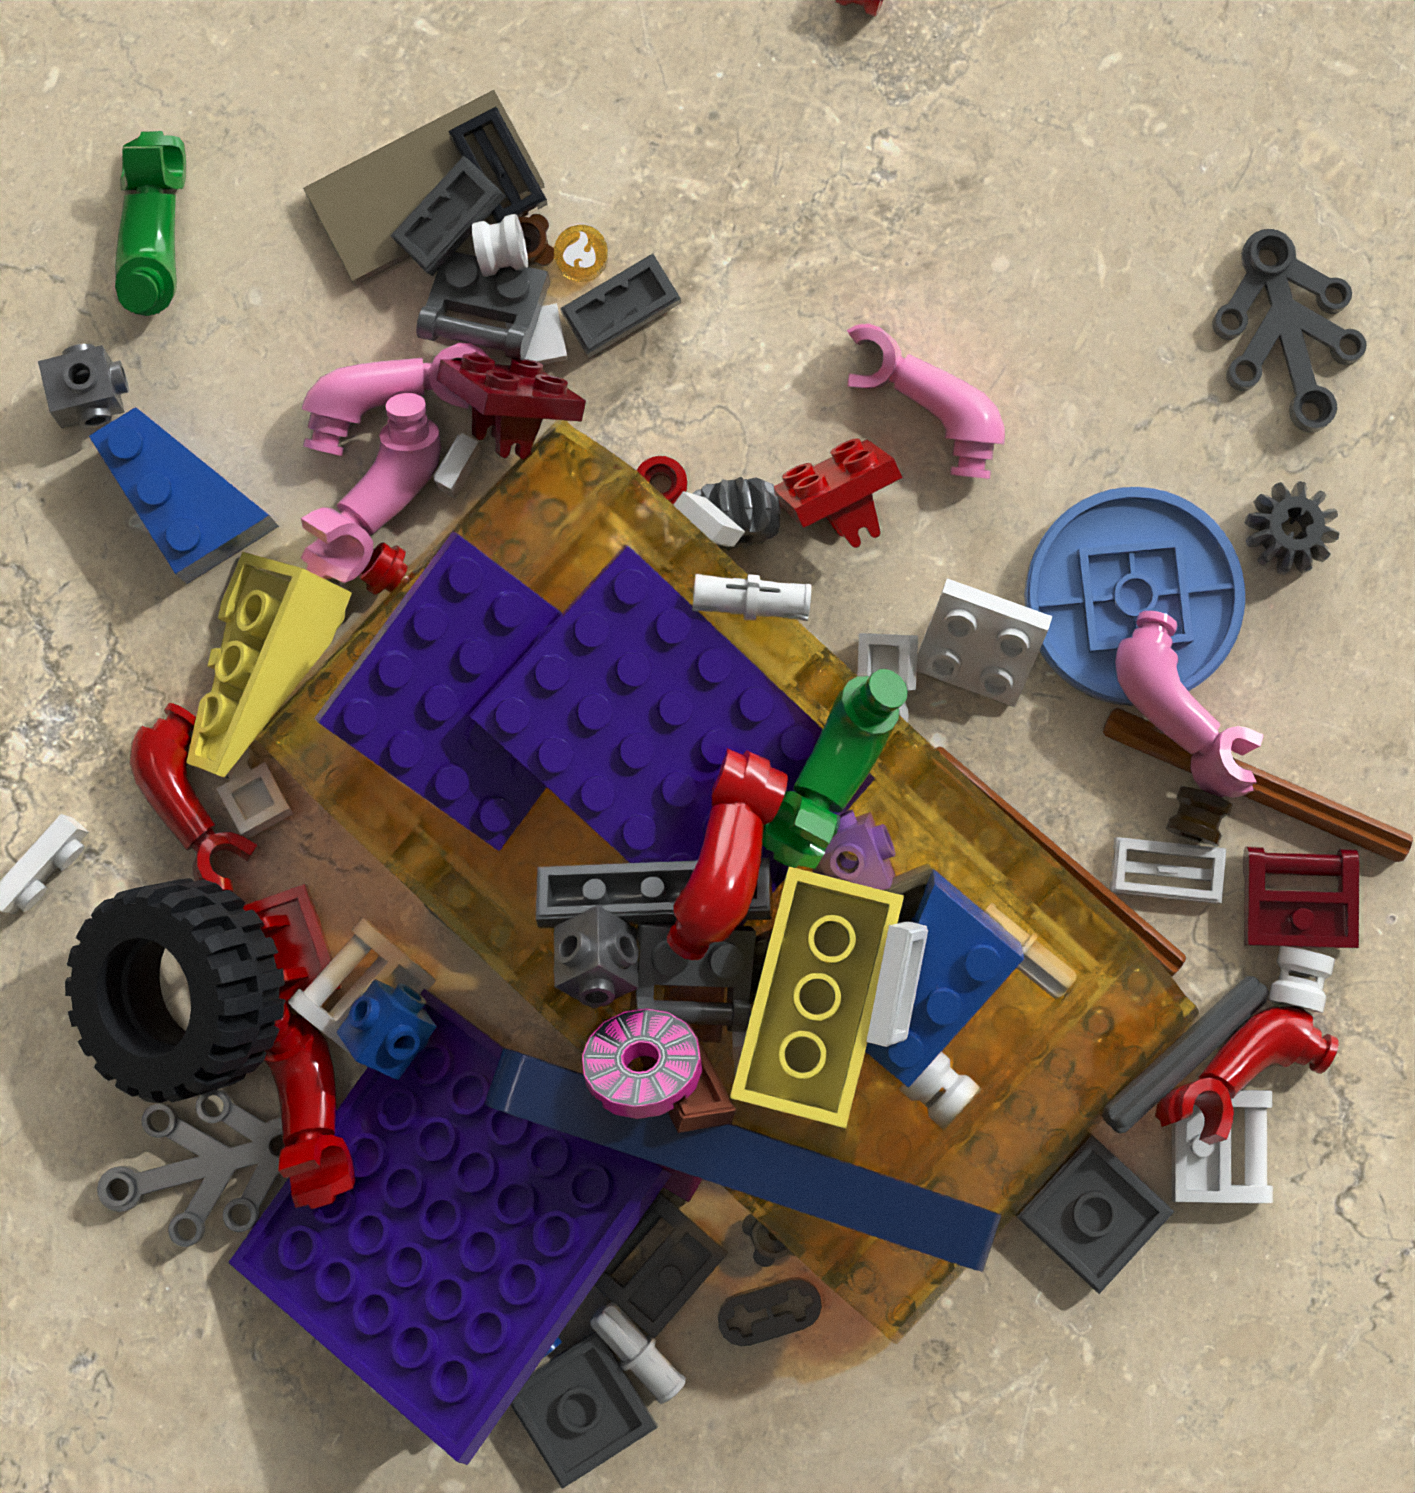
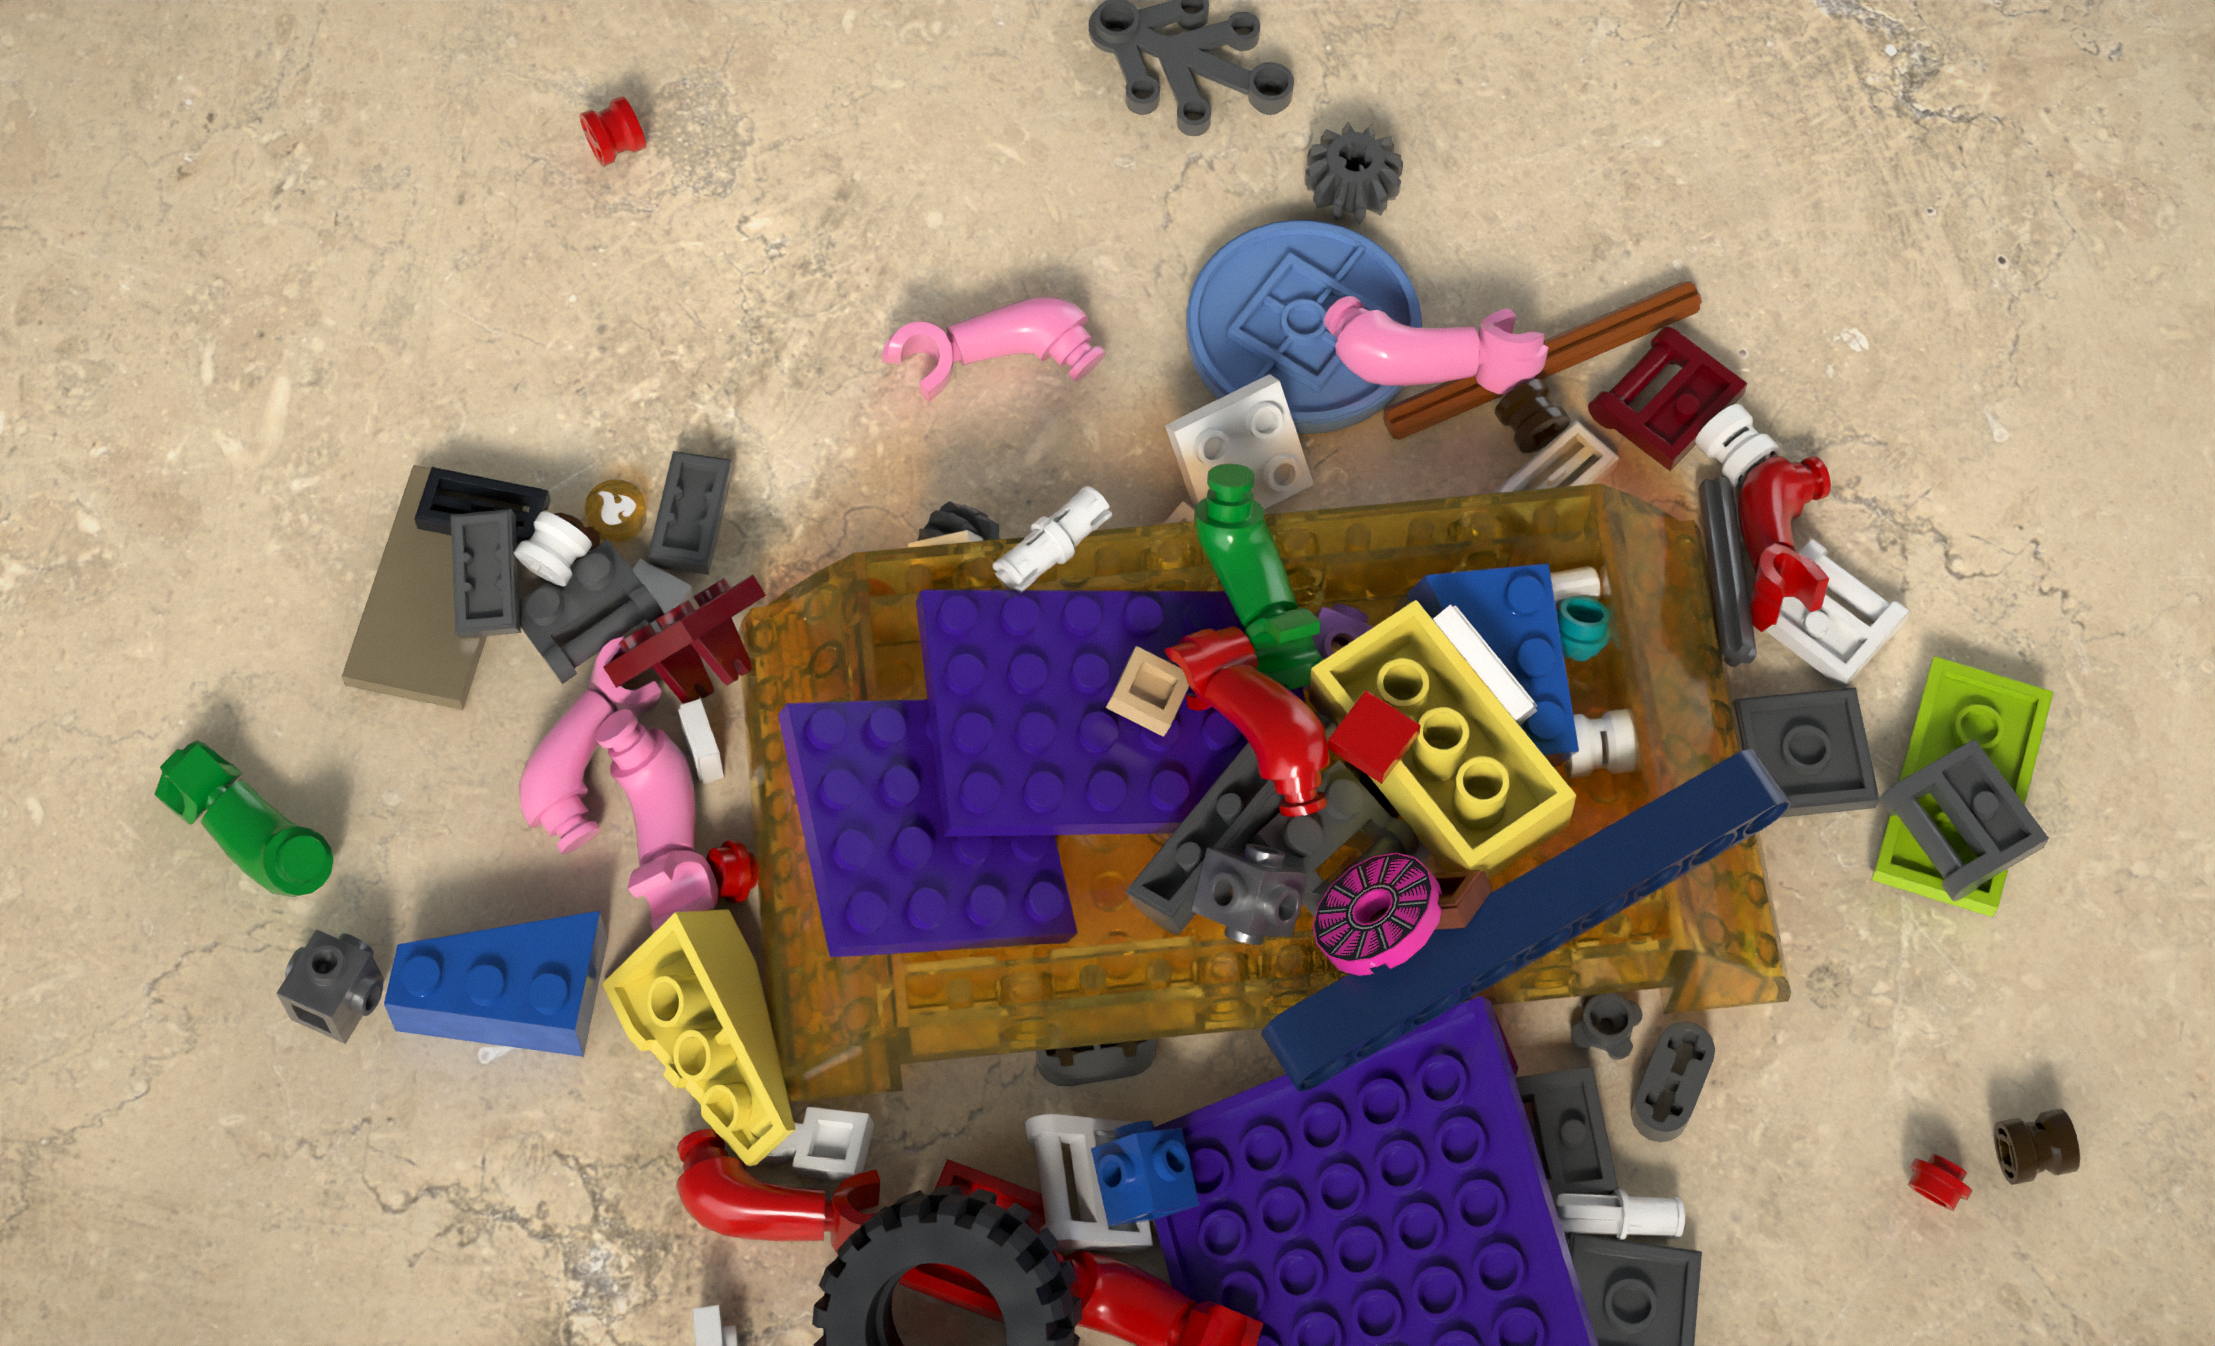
camera: 50 degrees left, 20 degrees down
(689, 762) = (1149, 691): none -> tan plate
(767, 955) = (1373, 736): none -> red tile
(840, 489) = (1014, 454): red plate -> none
(1020, 1005) = (1583, 627): none -> teal plate
(1143, 1375) = (1980, 809): none -> dark grey plate
(1163, 1342) = (1953, 710): none -> lime plate

